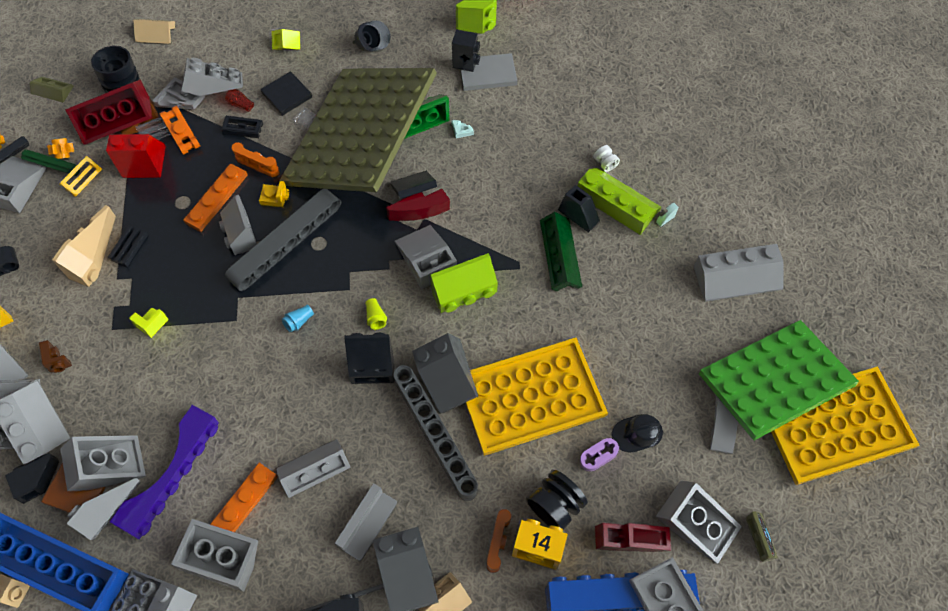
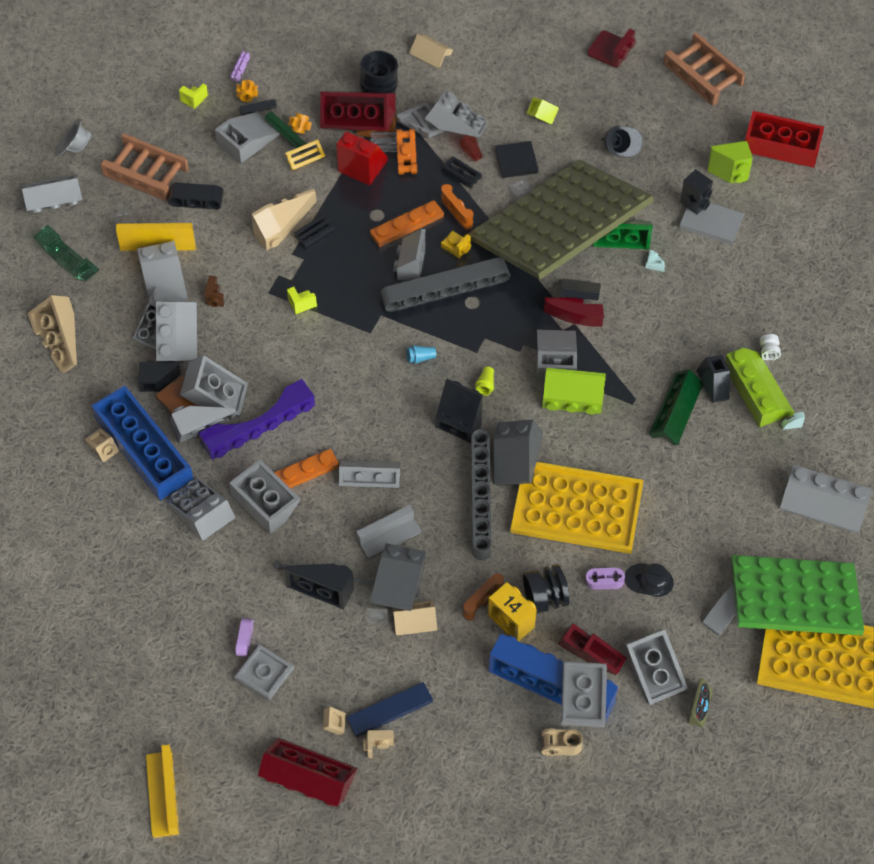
camera: 30 degrees right, 5 degrees down
(50, 88) = (316, 65): olive slope -> none

